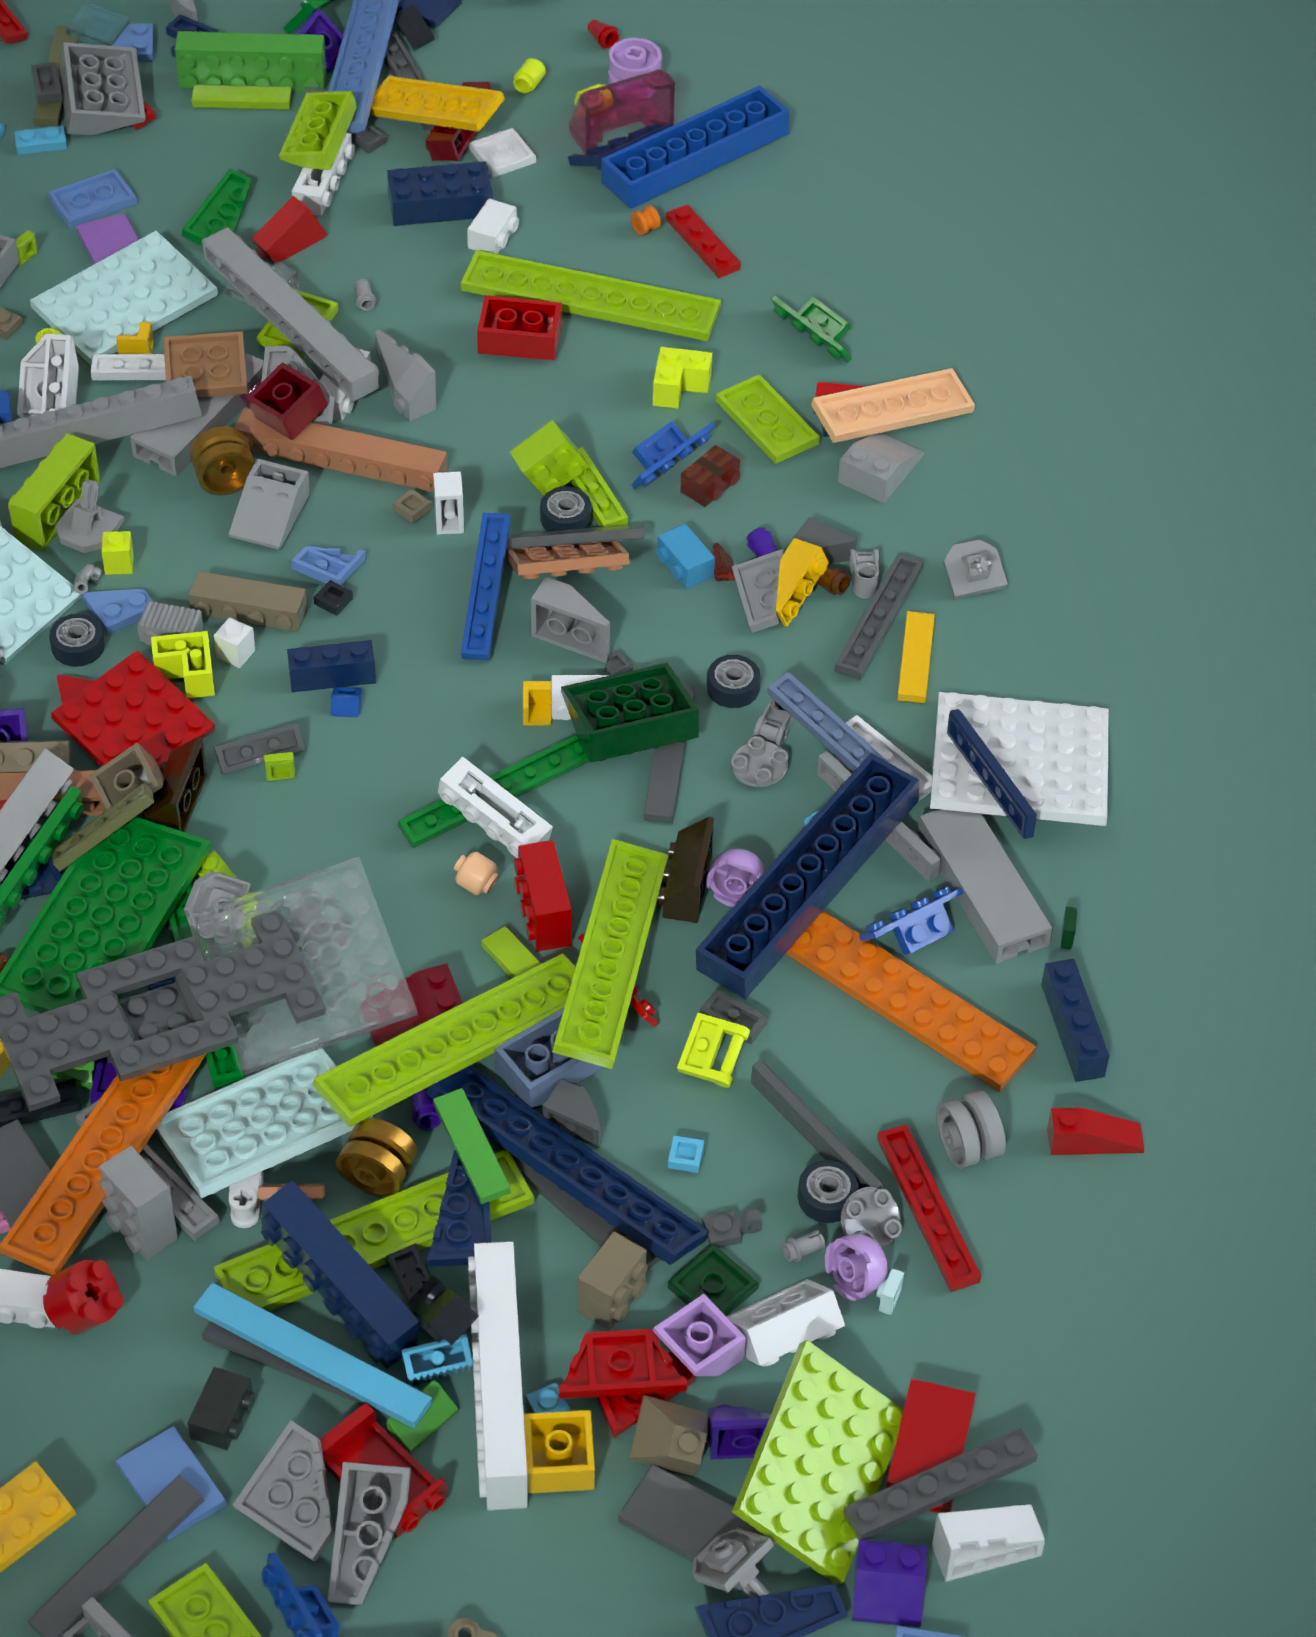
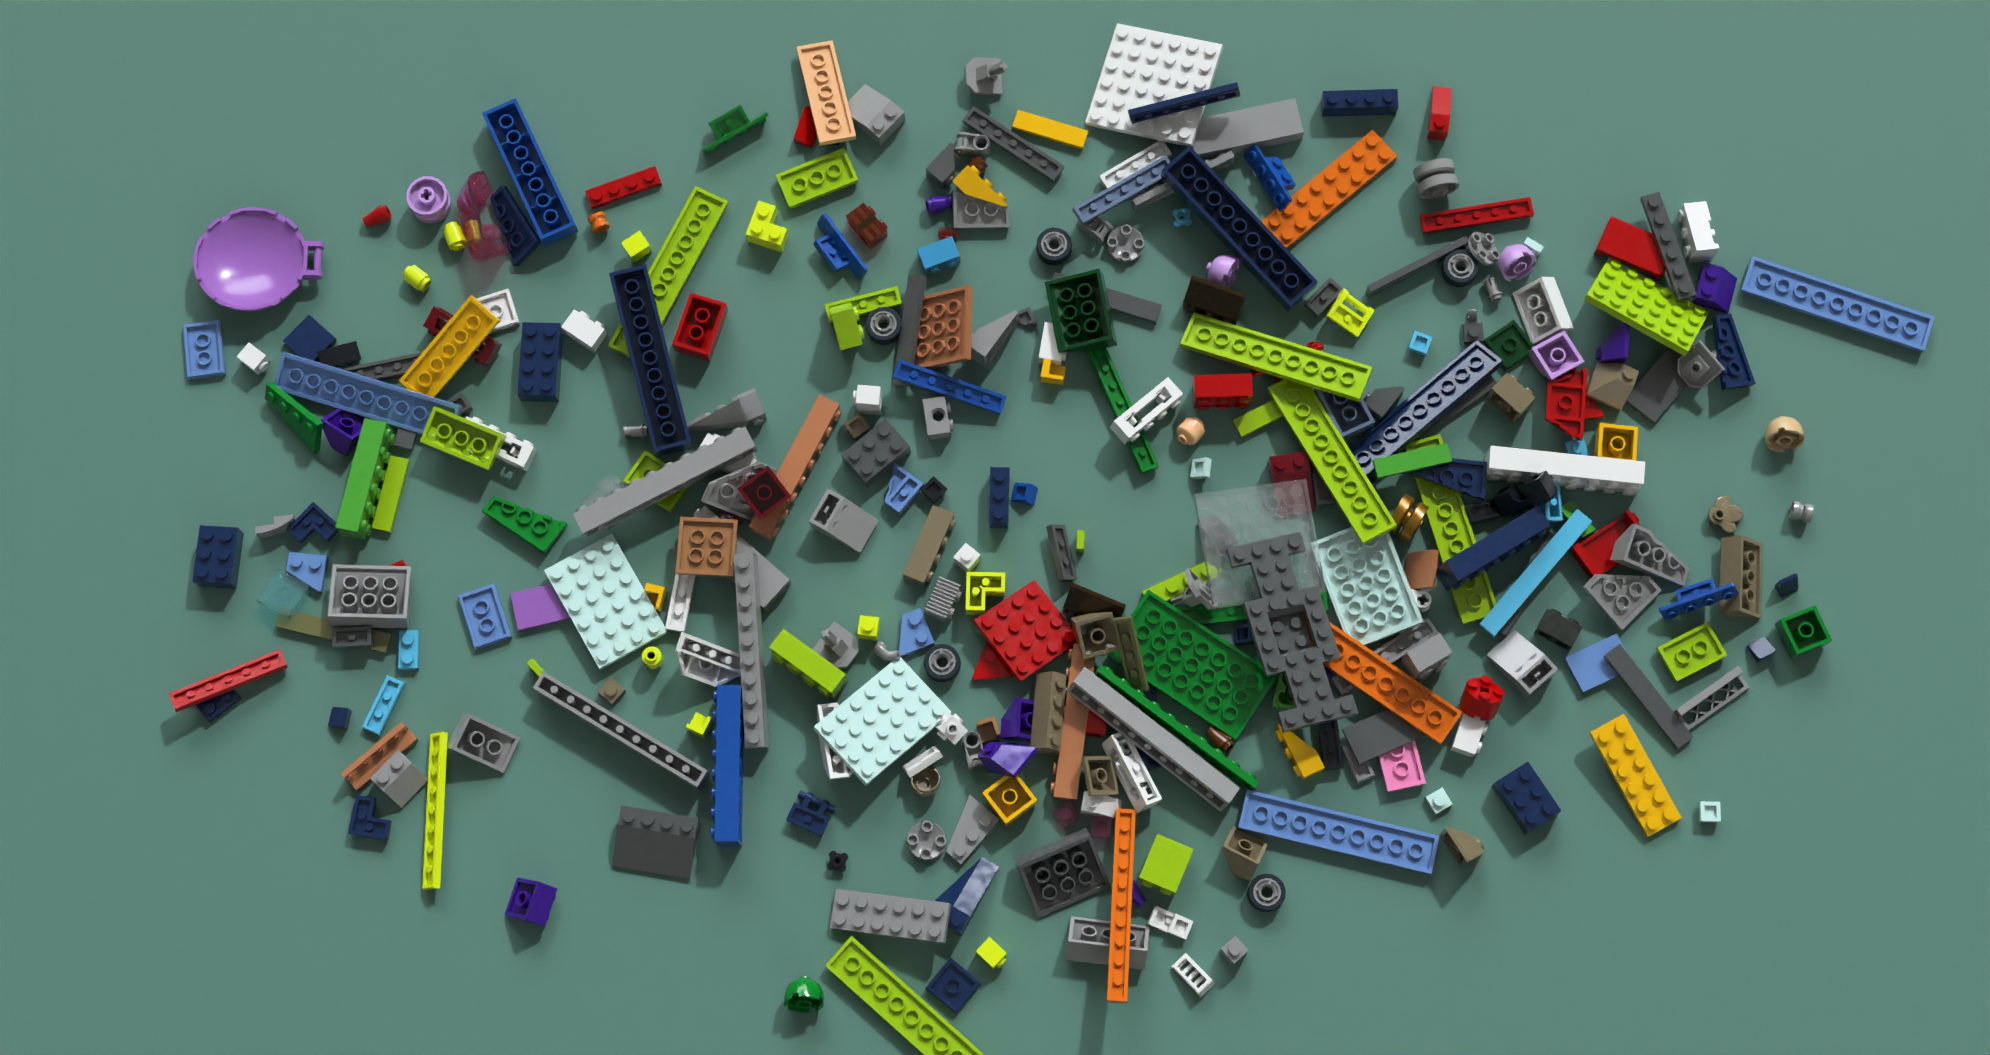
camera: 75 degrees left, 25 degrees up
(151, 1361) = (1522, 663): none -> light grey slope
(221, 460) = (798, 546): pearl gold wheel -> none
(288, 232) = (564, 477): red slope -> none
(376, 525) = (876, 453): none -> dark grey brick
(419, 896) = (1200, 468): none -> light aqua plate
(440, 585) = (934, 407): none -> light grey brick
(457, 278) = (650, 360): none -> dark blue brick
(620, 258) = (636, 246): none -> neon yellow panel
(1068, 928) = (1289, 89): dark green tile -> none

